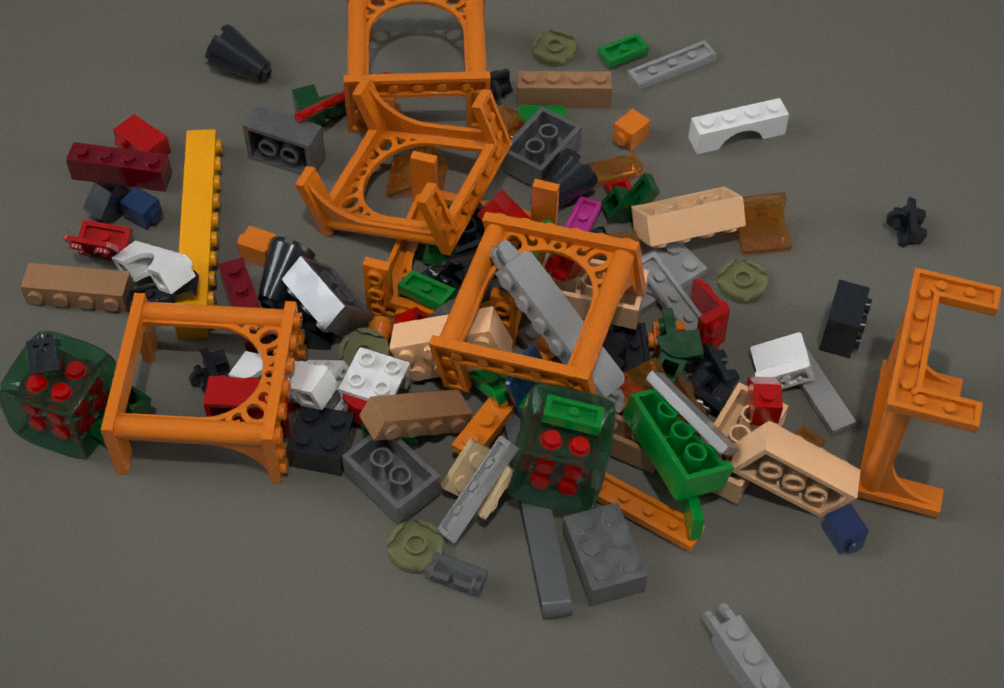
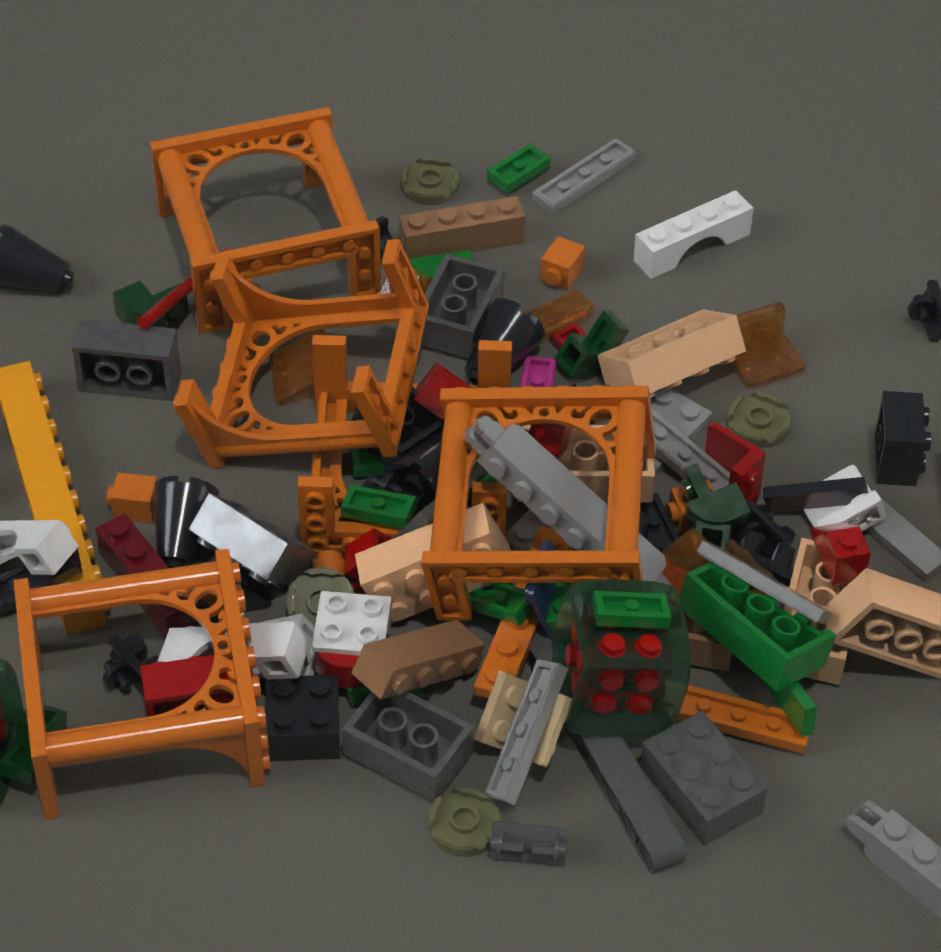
camera: 15 degrees left, 5 degrees down
(761, 349) = (813, 494): none -> black tile

